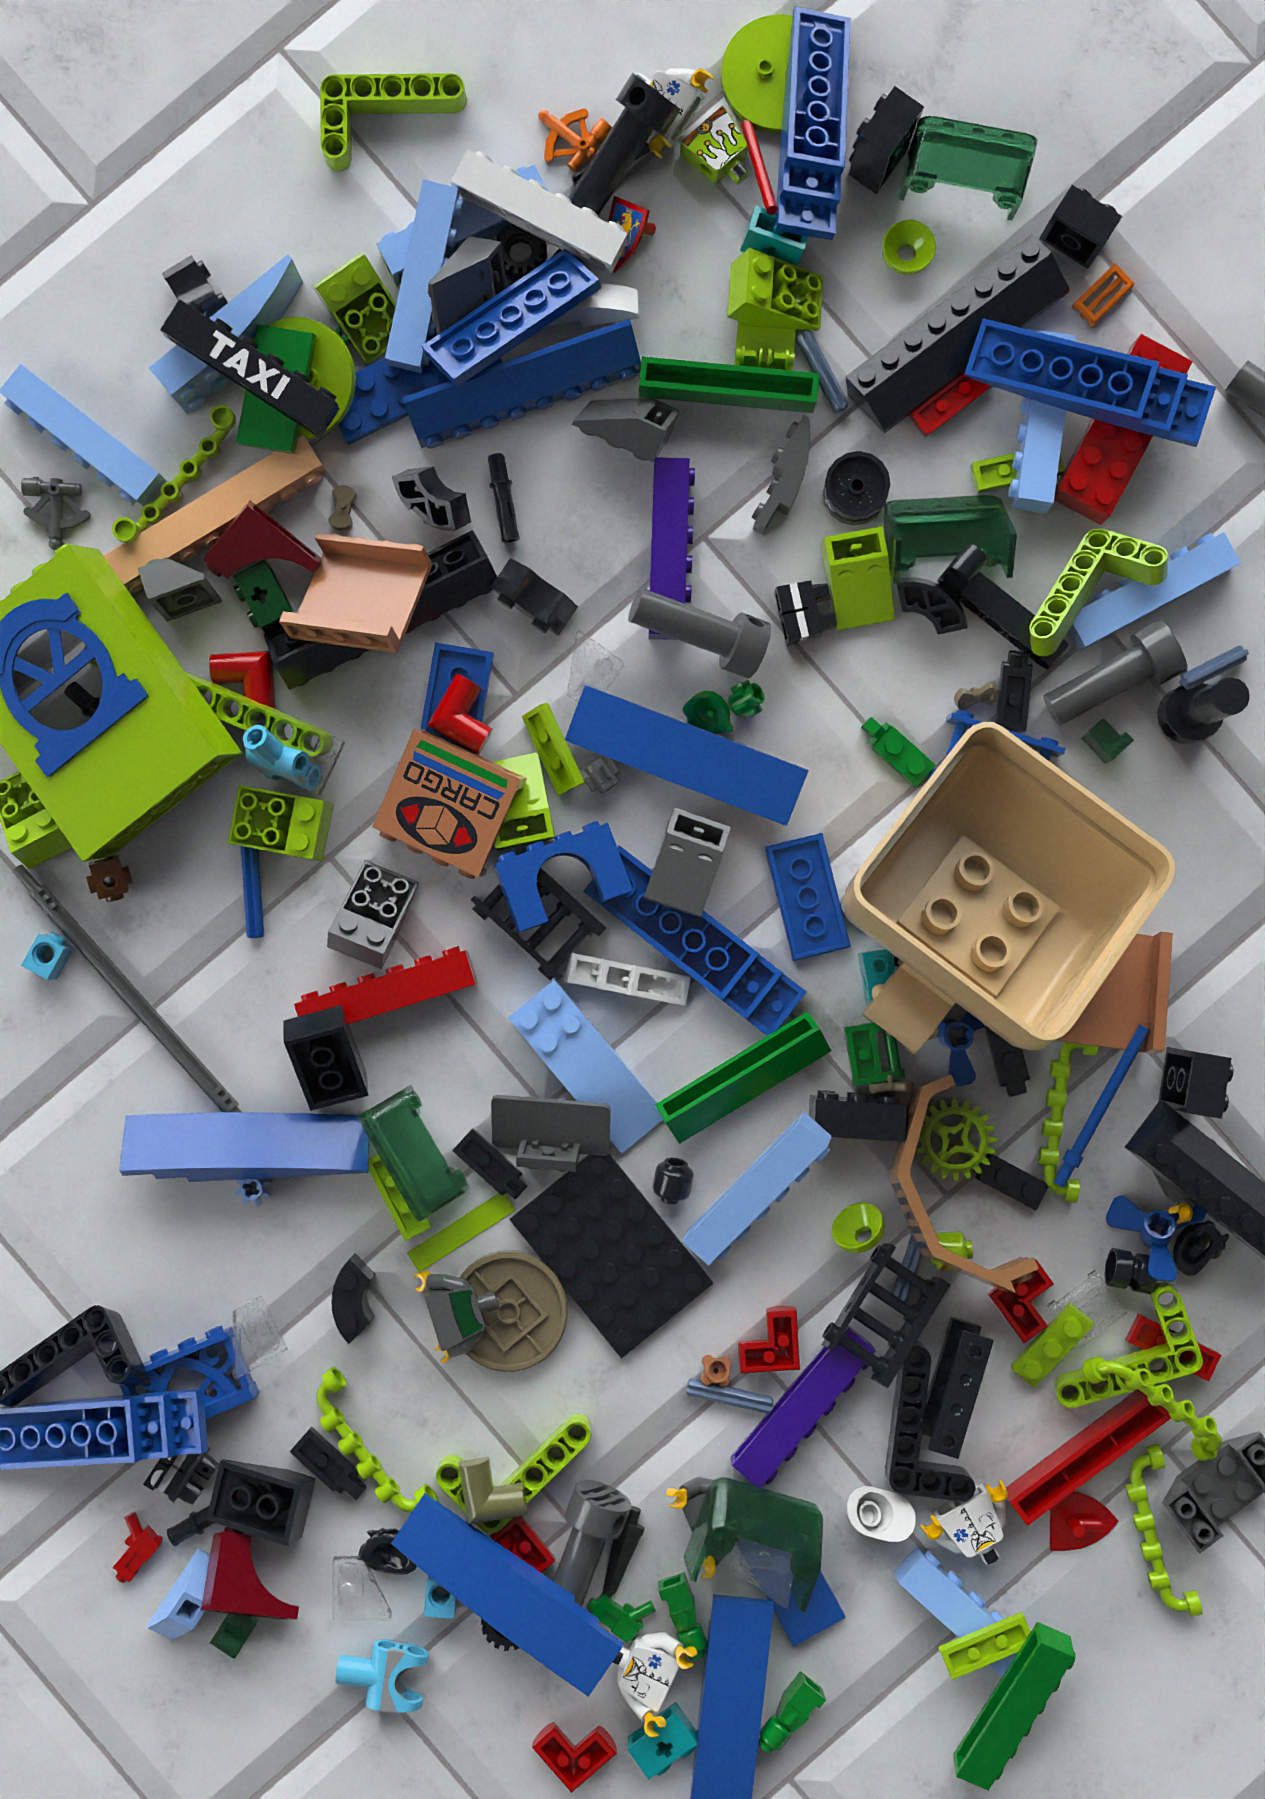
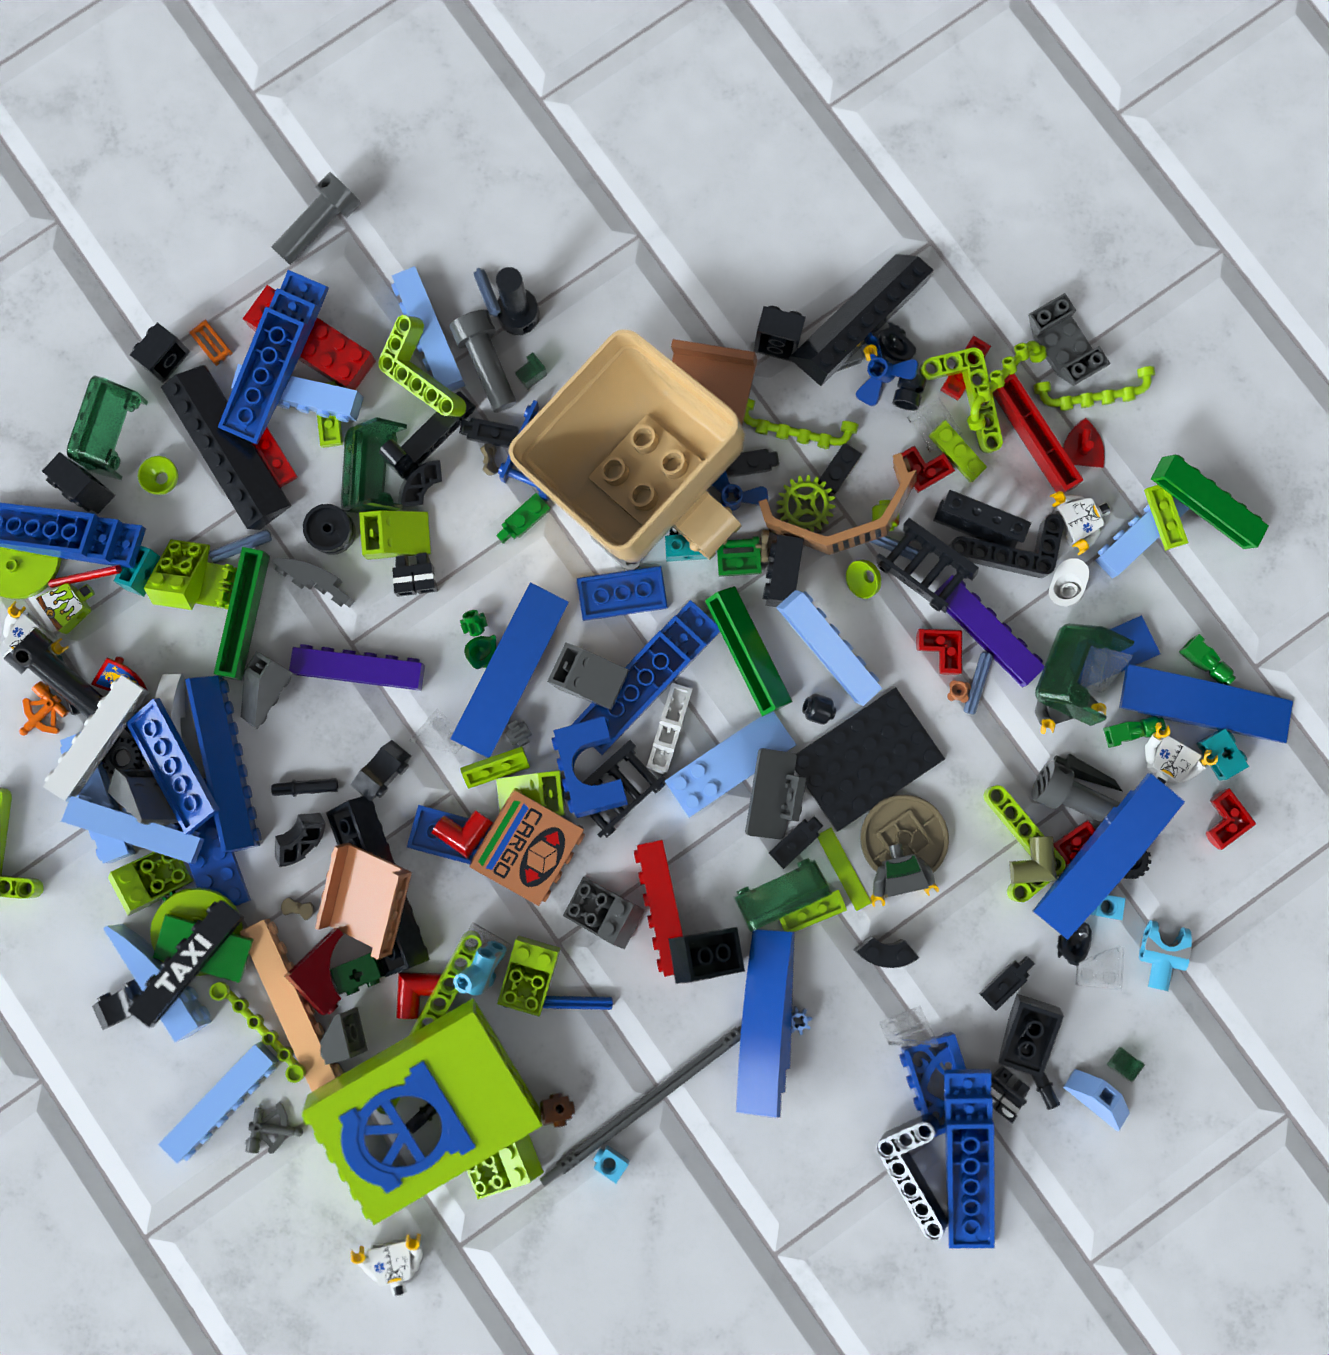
camera: 80 degrees left, 5 degrees down
(142, 1546) = (1059, 1130): red piece -> none
(233, 1582) = (1091, 1059): dark red arch -> none
(352, 1443) = (993, 964): lime bar -> none
(621, 1620) = (1133, 776): green piece -> none
(738, 642) = (431, 624): dark grey piece -> none
(1074, 1156) = (825, 422): blue bar -> none

